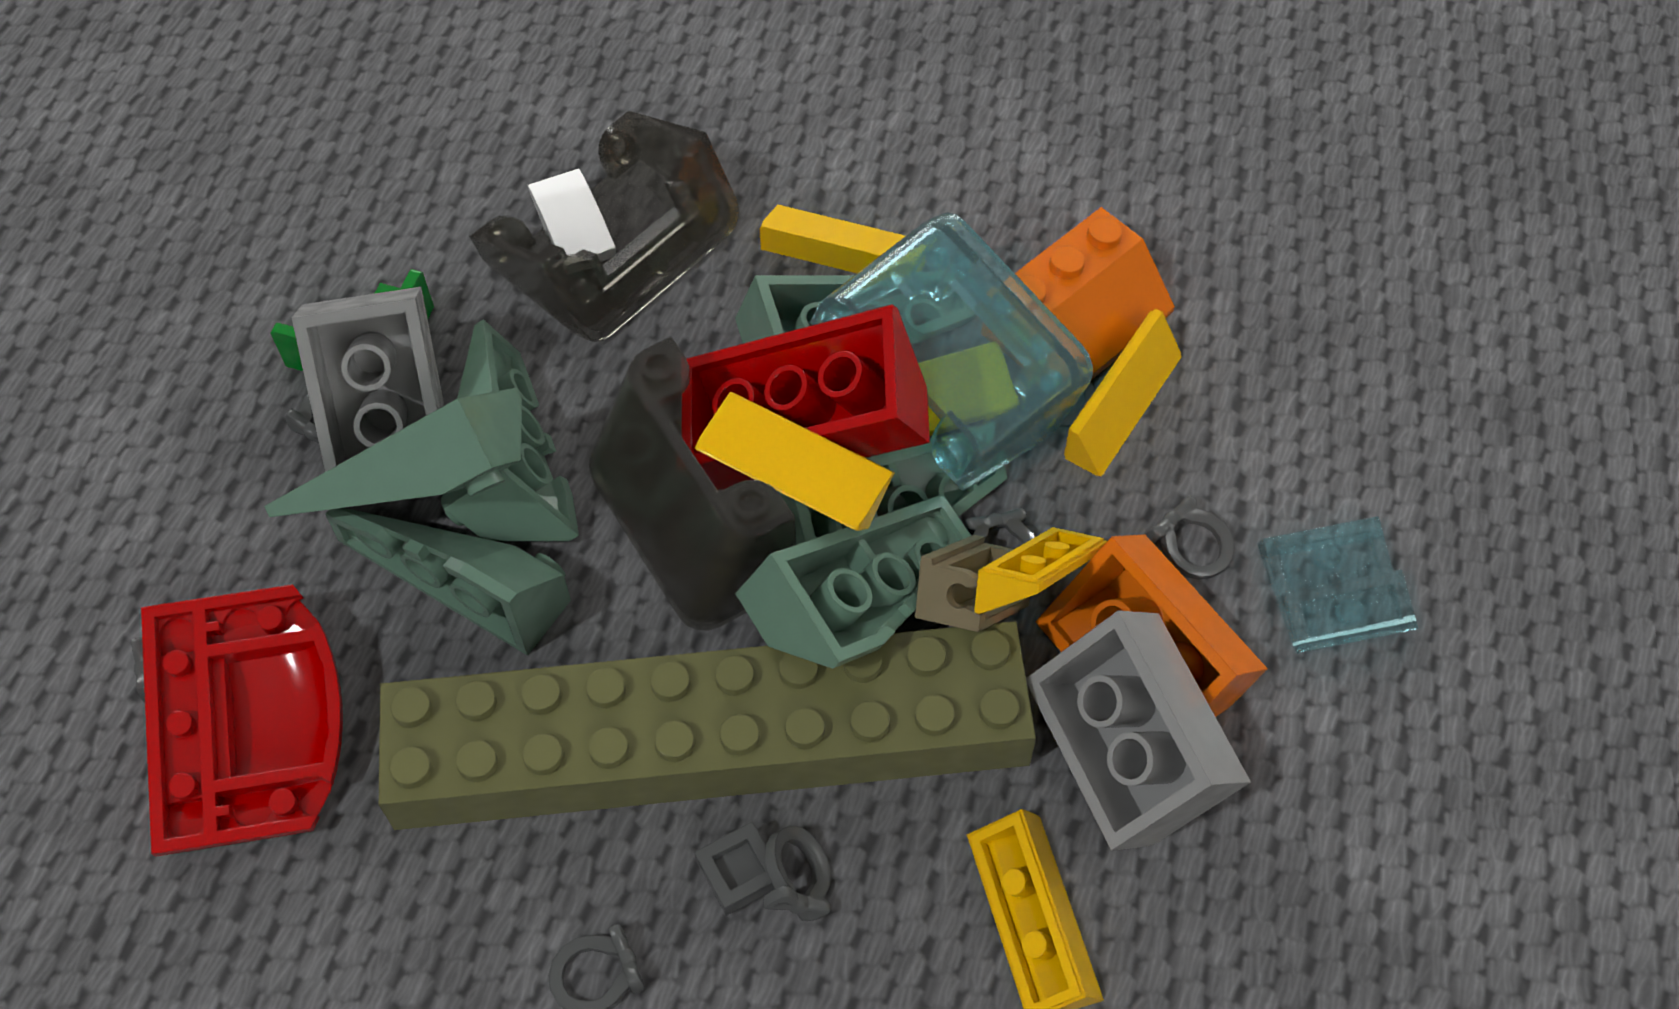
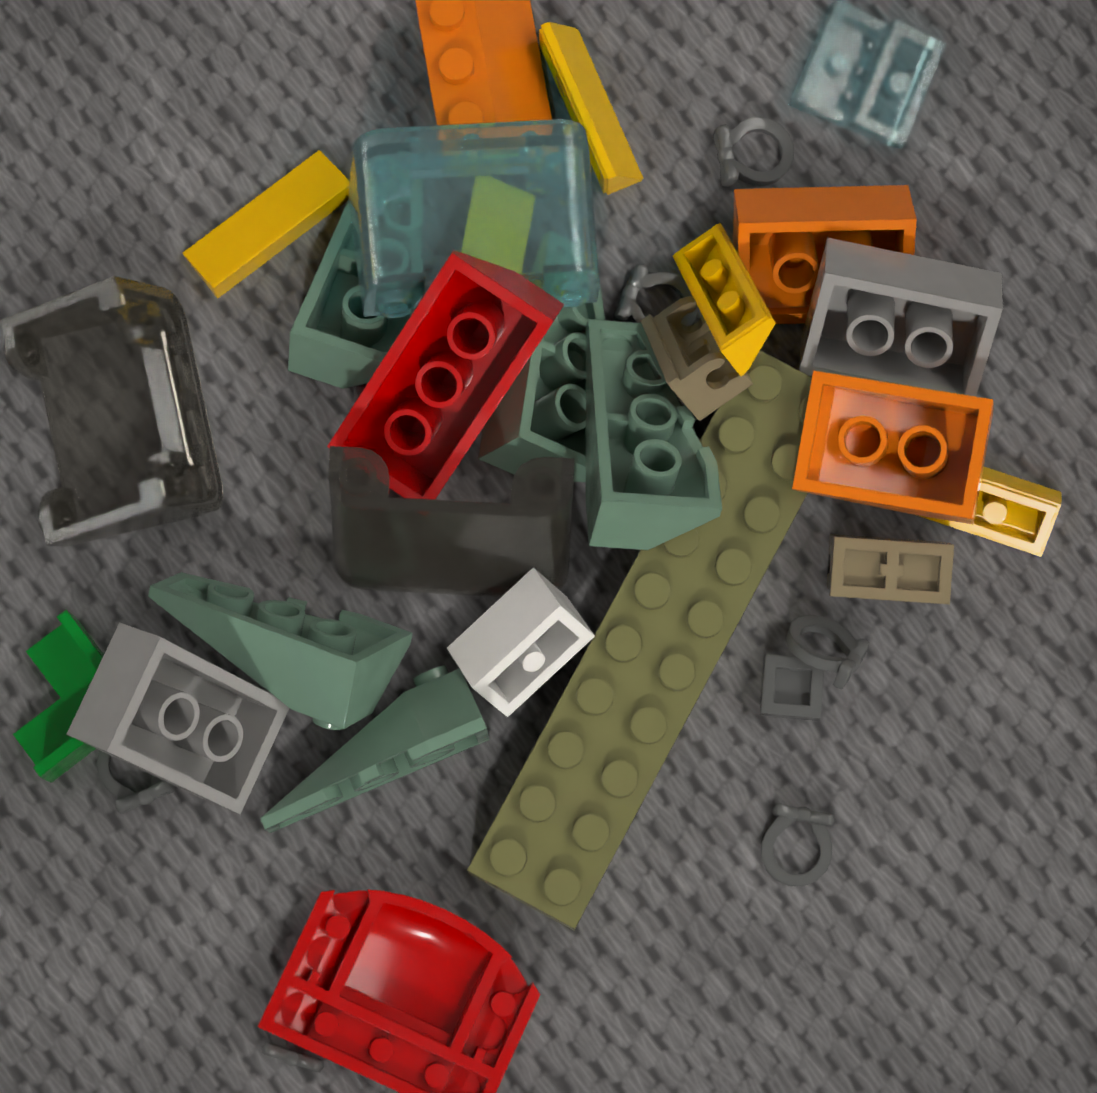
camera: 55 degrees left, 20 degrees up
(438, 454) = (311, 714): sand green wedge -> none
(572, 215) = (79, 443): white slope -> none
(619, 607) = (520, 642): none -> white brick
(795, 461) = (518, 425): yellow slope -> none
(908, 879) = (890, 569): none -> dark tan hinge
(1018, 795) = (894, 446): none -> orange slope

